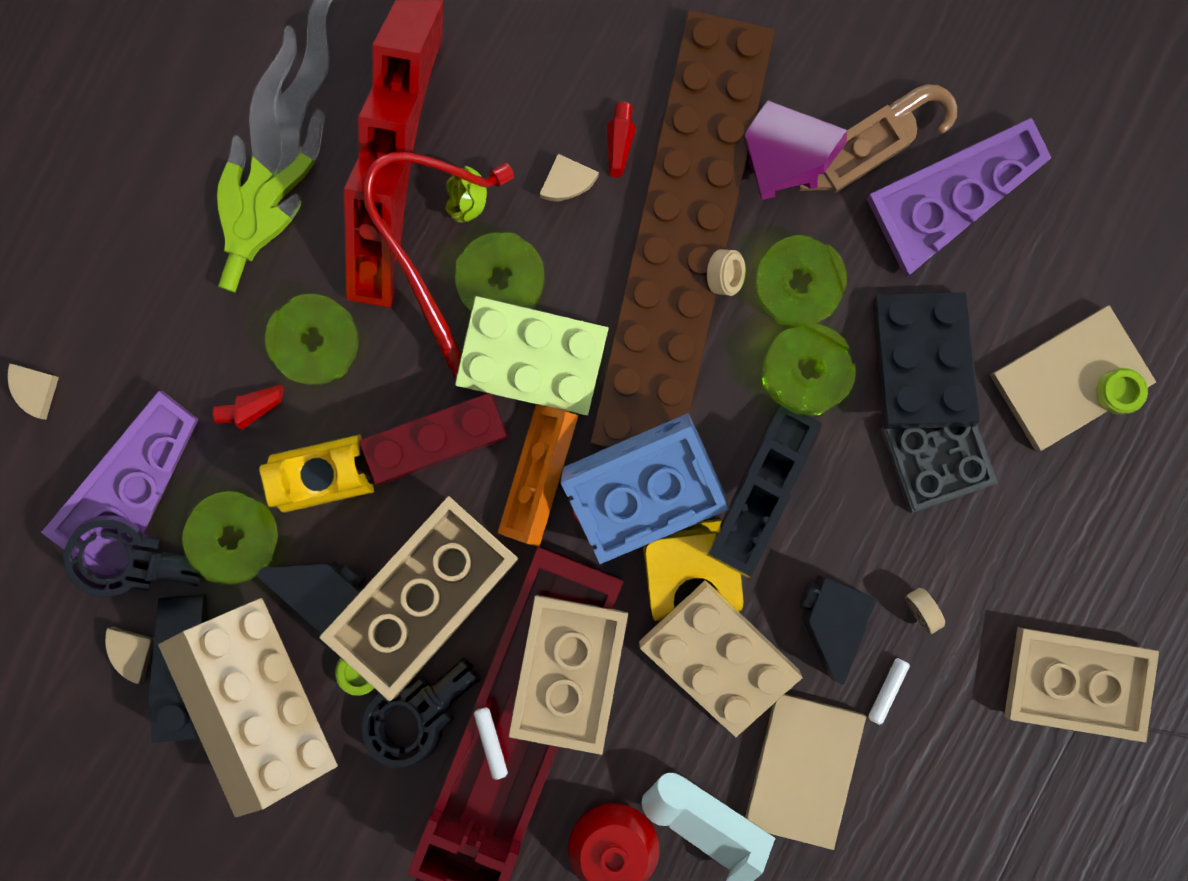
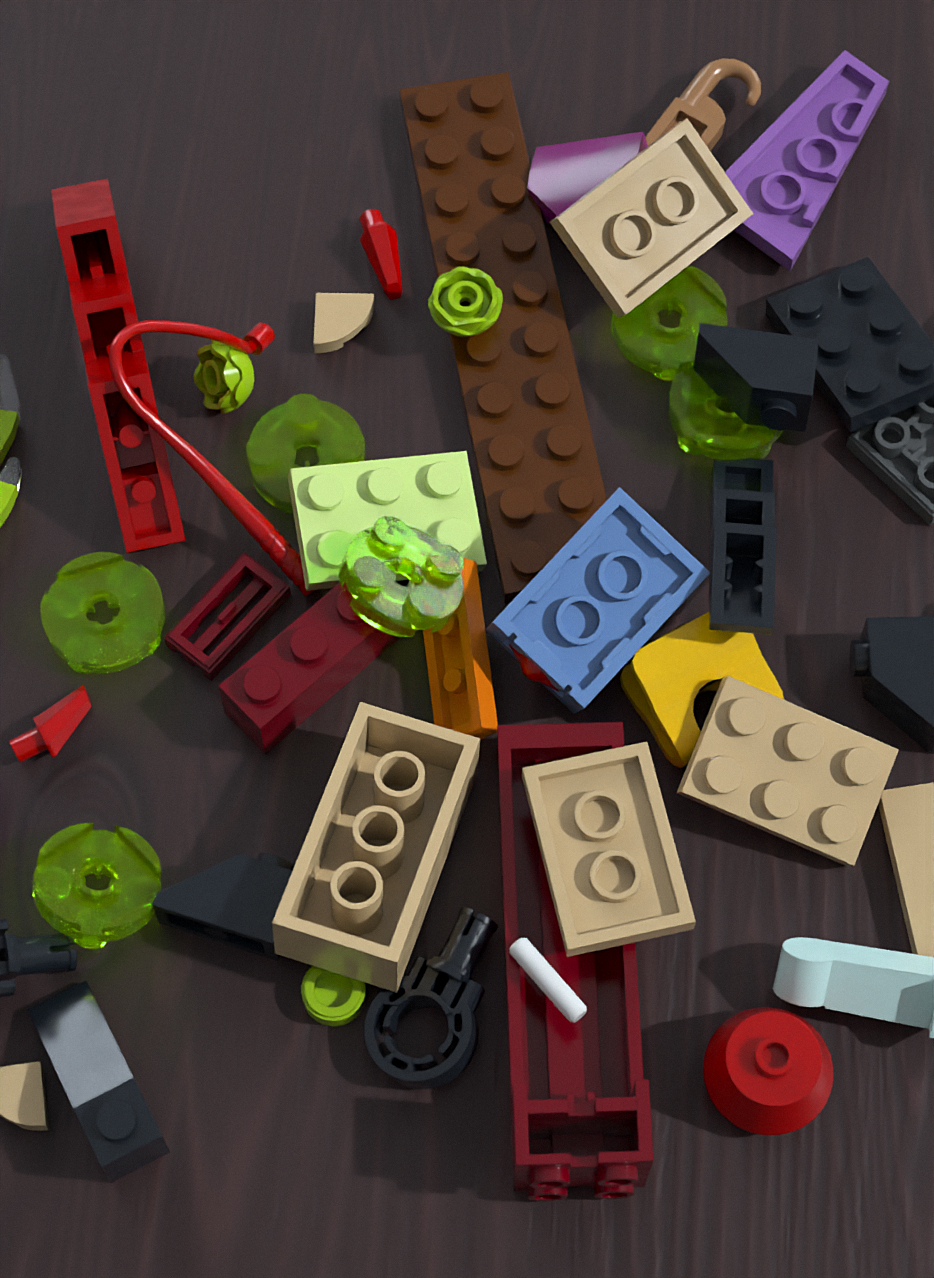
camera: 25 degrees left, 20 degrees down
(248, 707) = (211, 1068): tan brick -> none
(314, 475) = (186, 758): yellow piece -> none
(364, 392) = (195, 653): none -> dark red tile
(490, 416) = (429, 565): none -> clear neon green plate
(658, 200) = (460, 286): none -> lime plate
(726, 272) = (577, 340): tan tile -> none
(819, 207) = (651, 218): none -> tan plate
(839, 366) = (759, 374): none -> black slope

